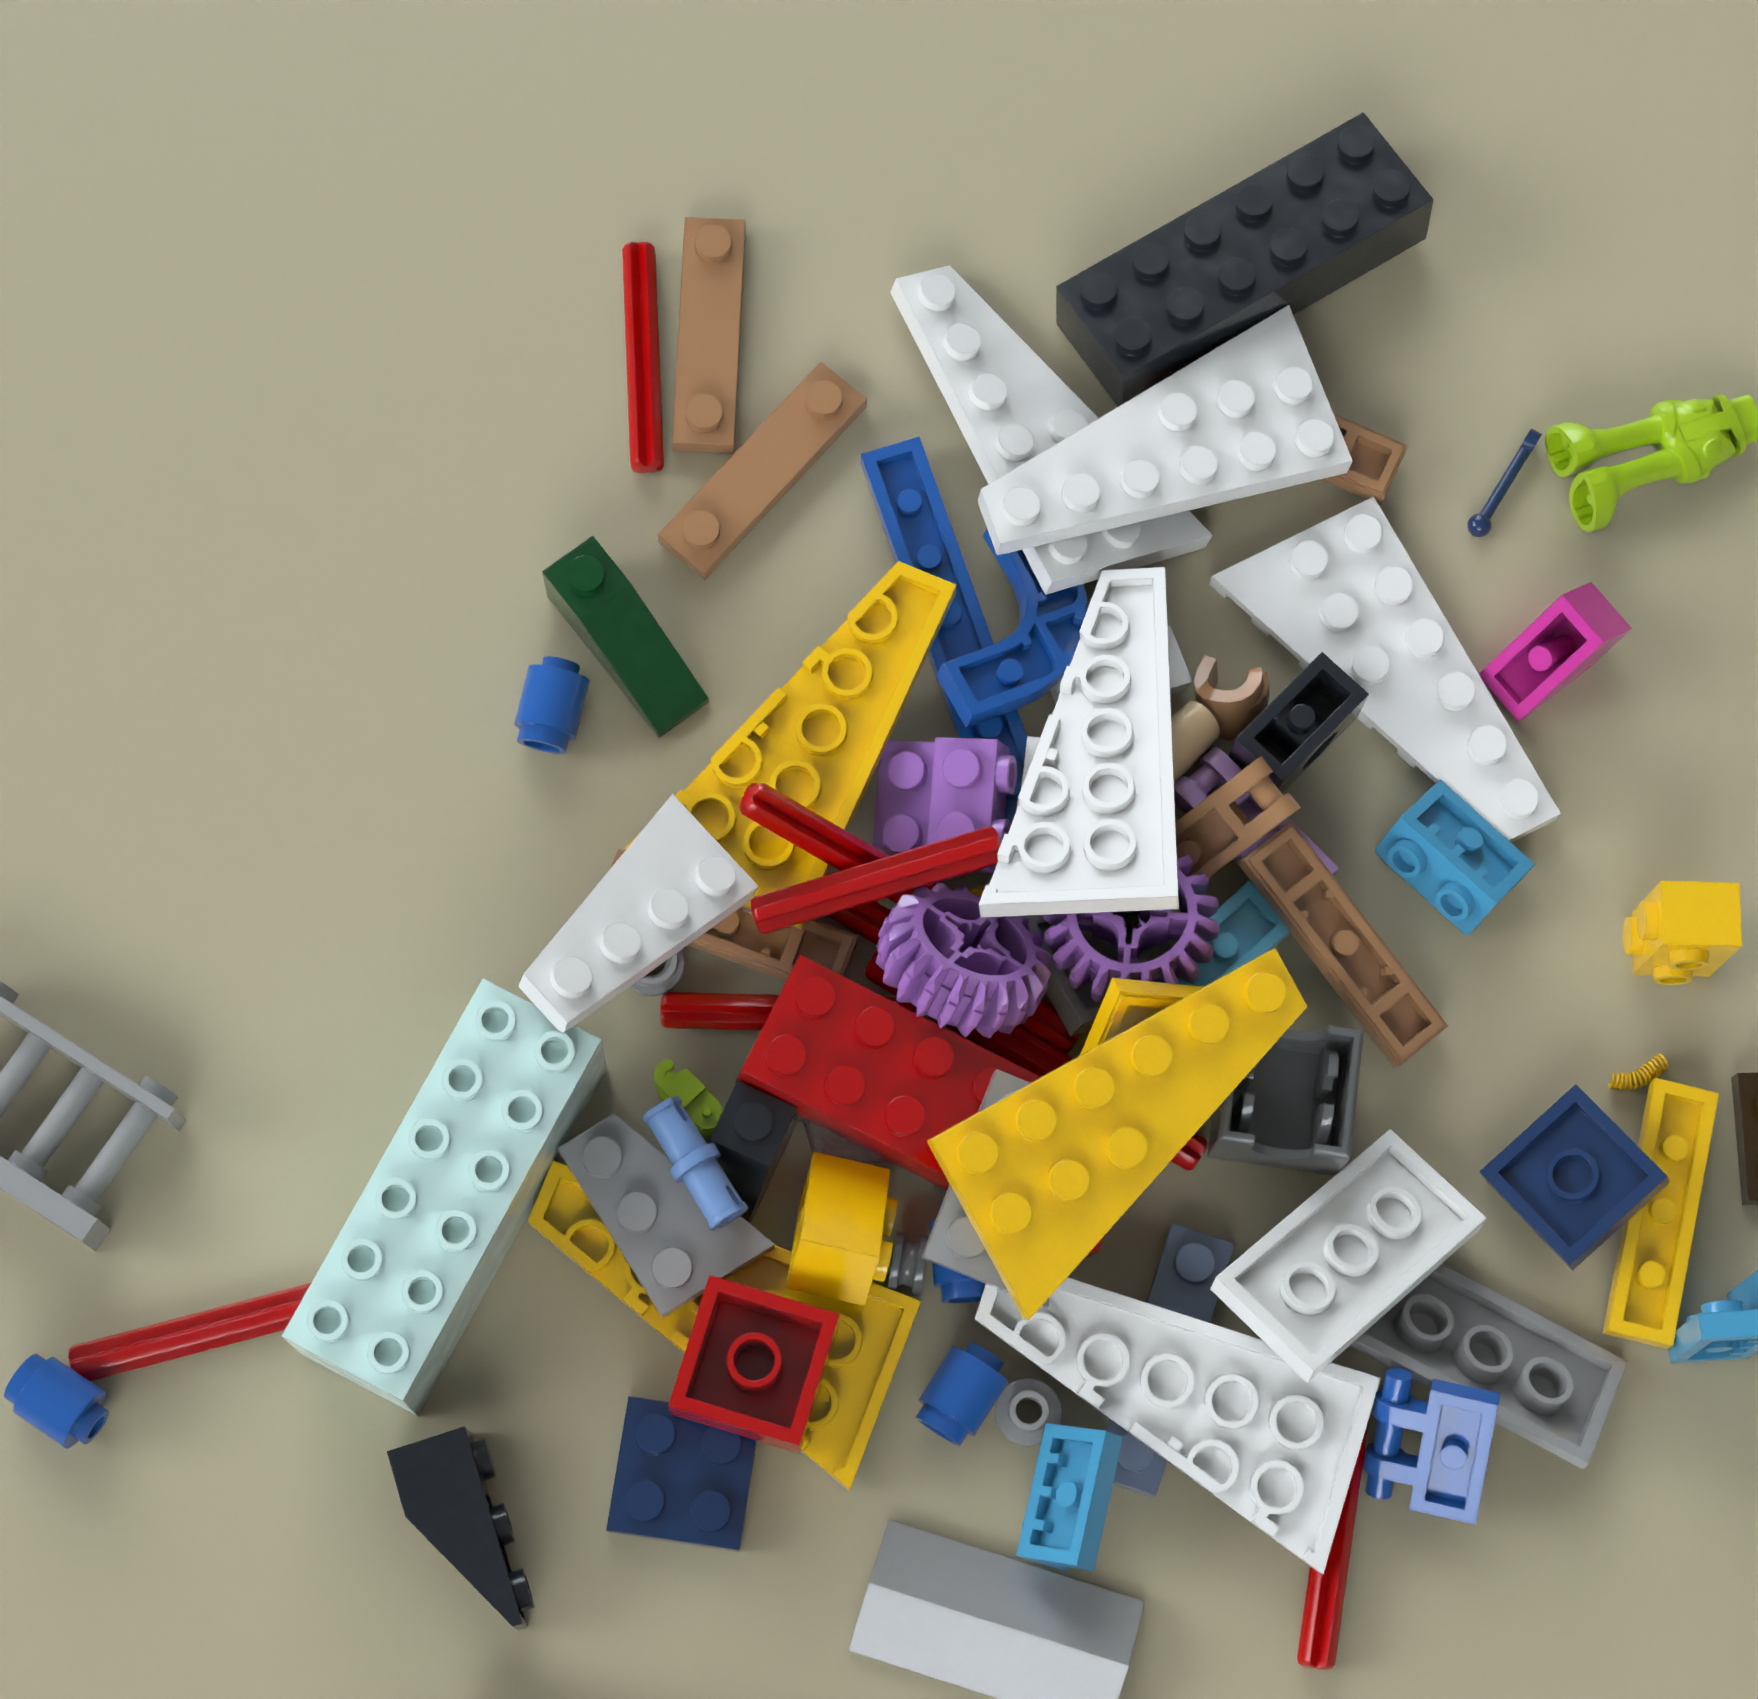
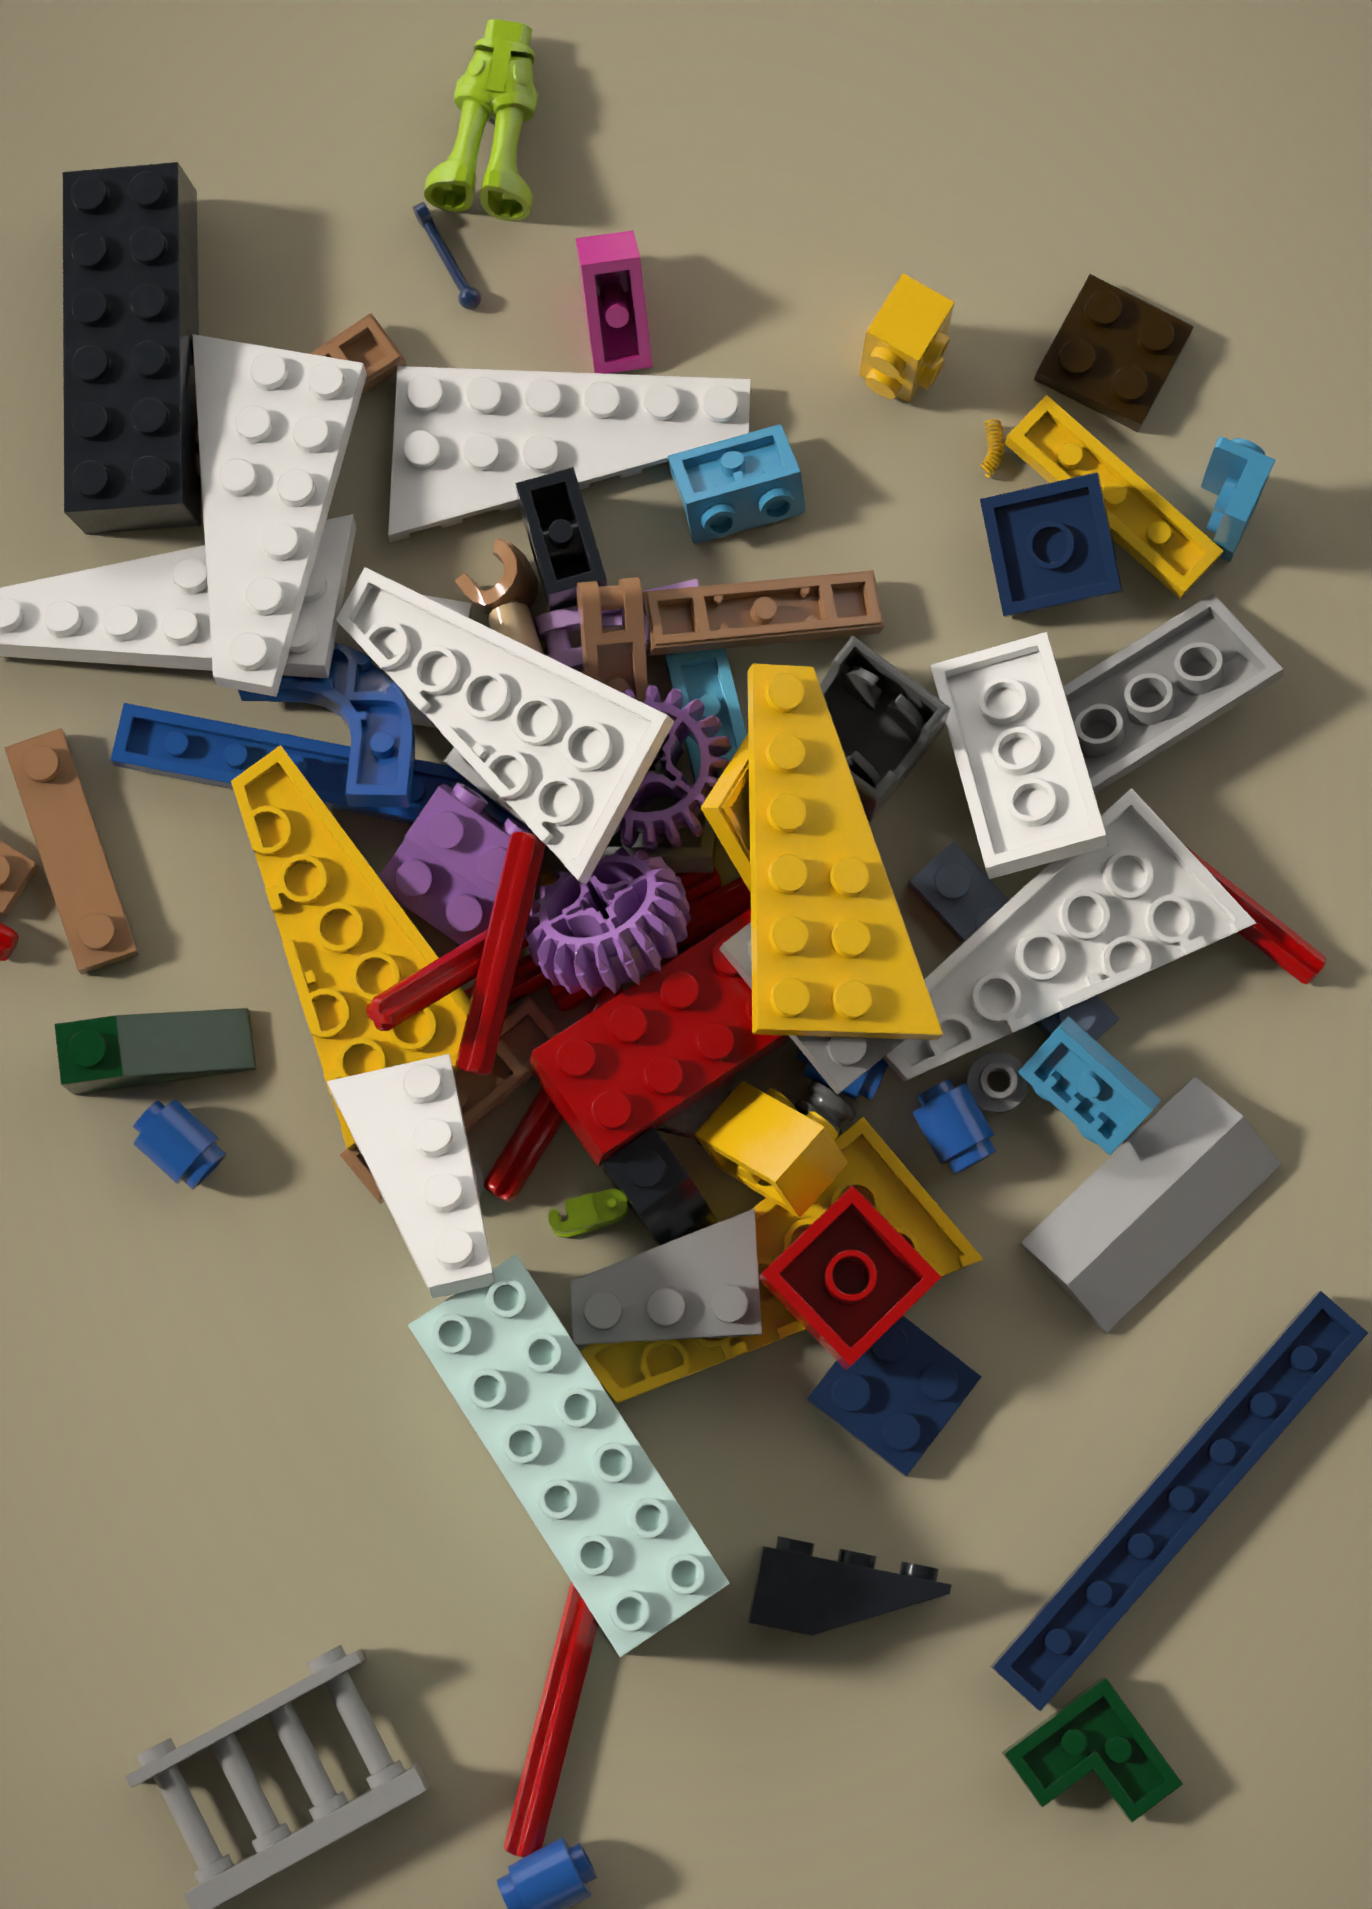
camera: 60 degrees left, 5 degrees up
(695, 1163) = (653, 1235): medium blue pin -> none
(1453, 1446) = (1216, 766): plate -> none

